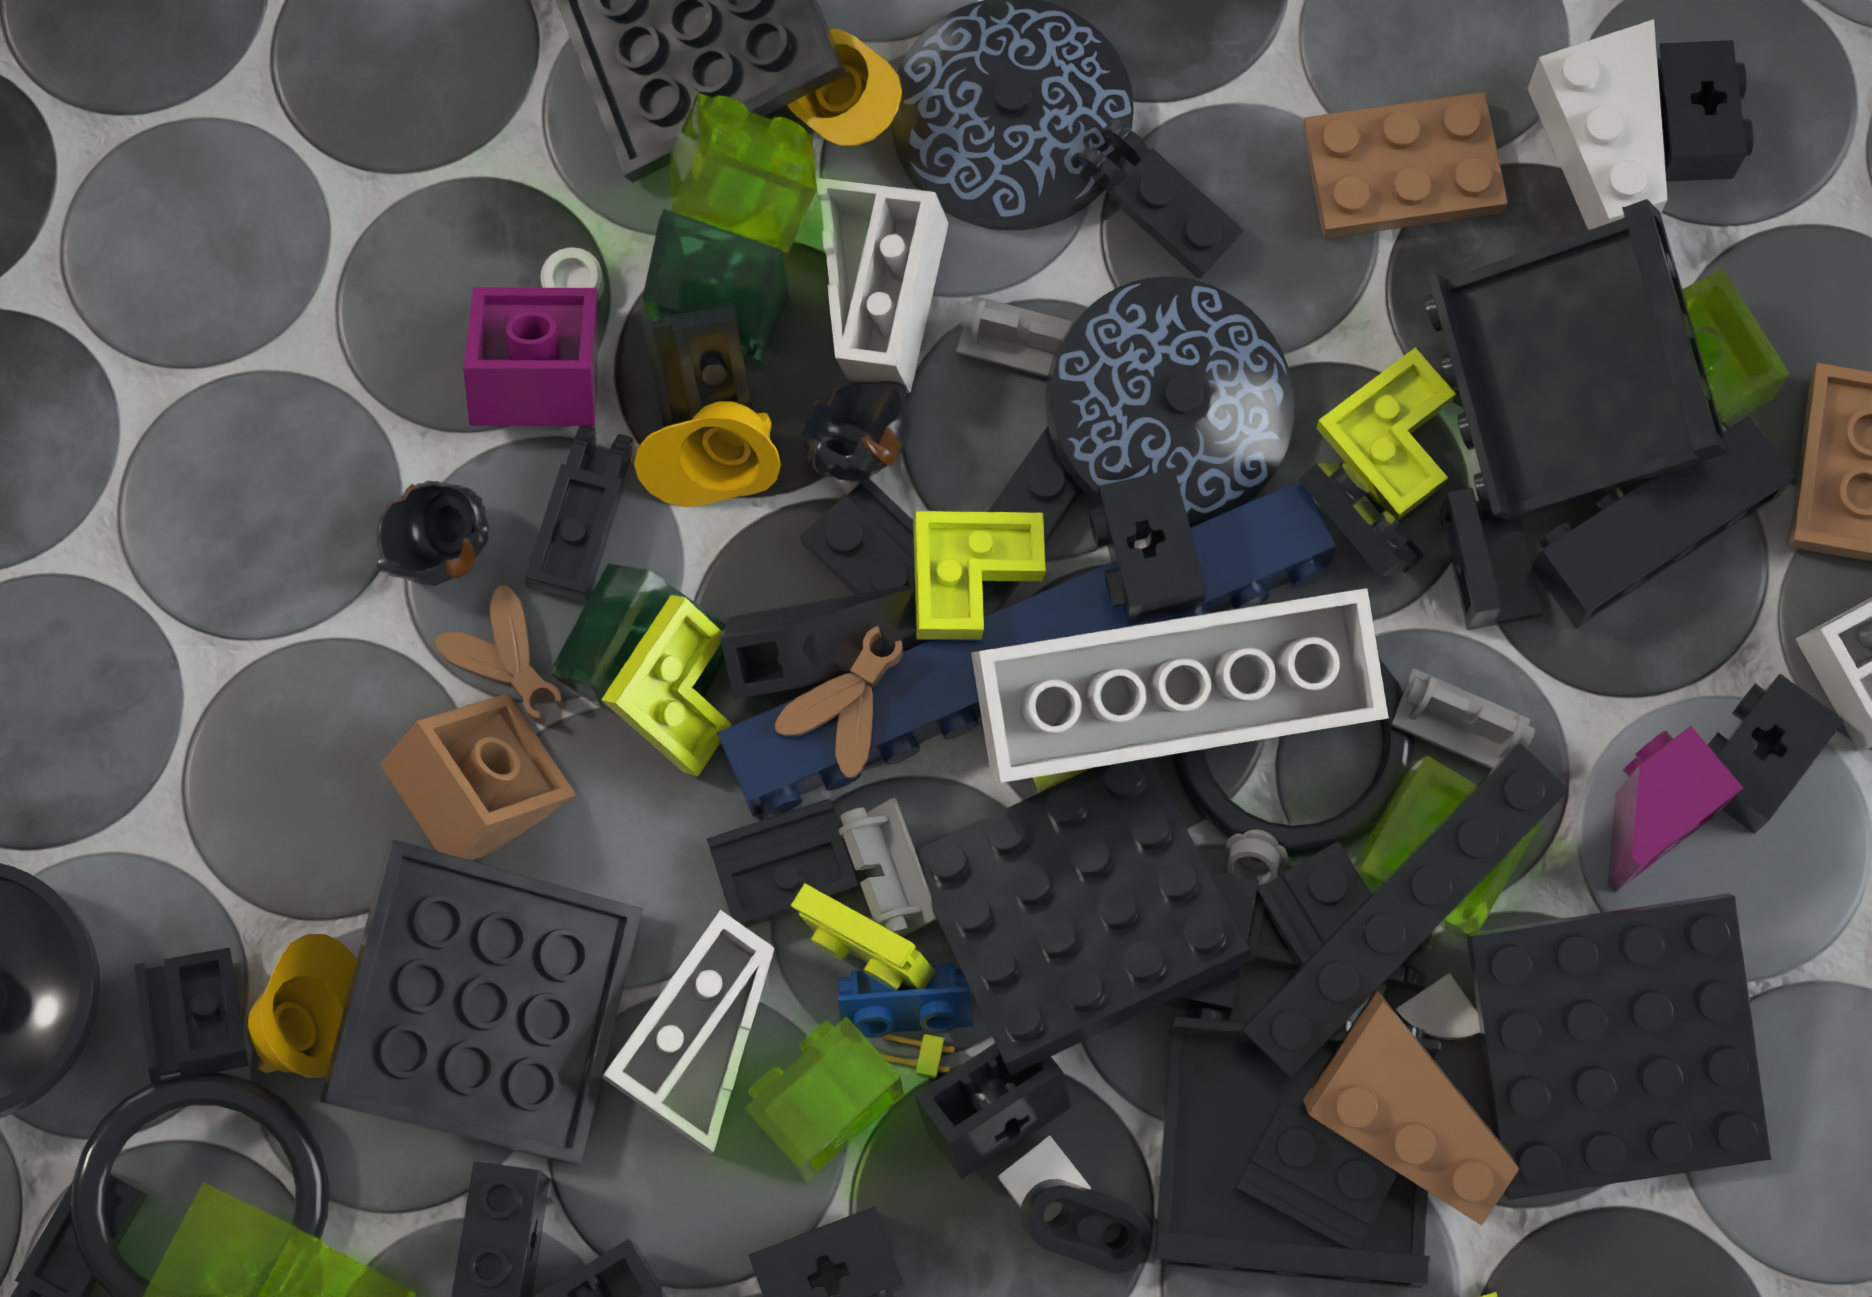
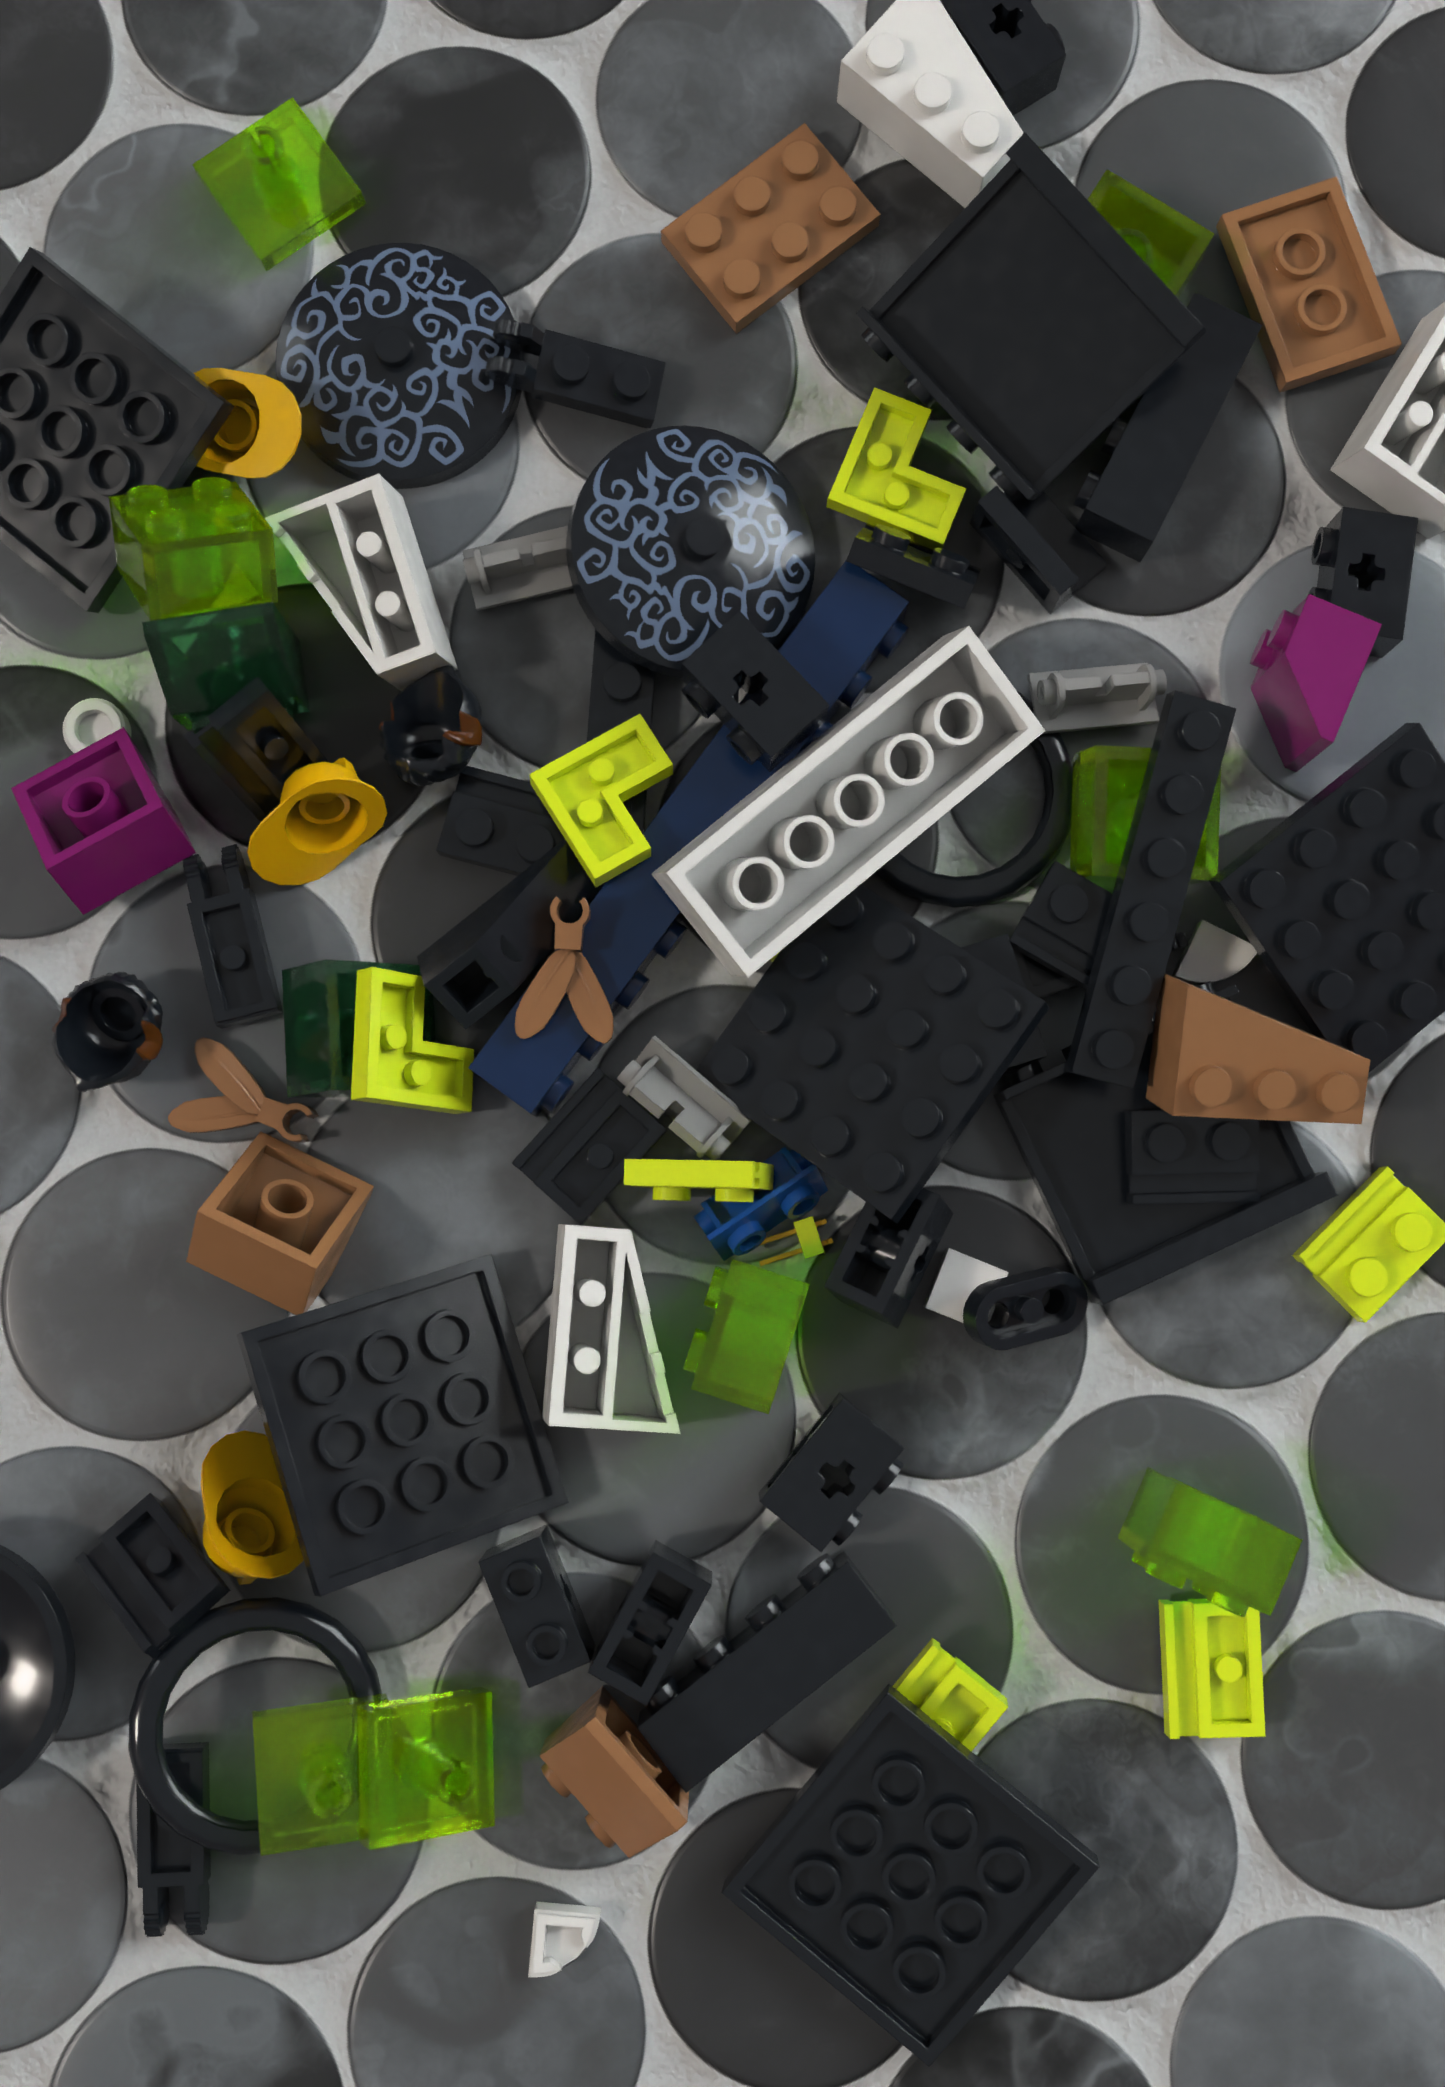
camera: 35 degrees left, 10 degrees up
(1255, 856) = (987, 913): light grey plate -> none

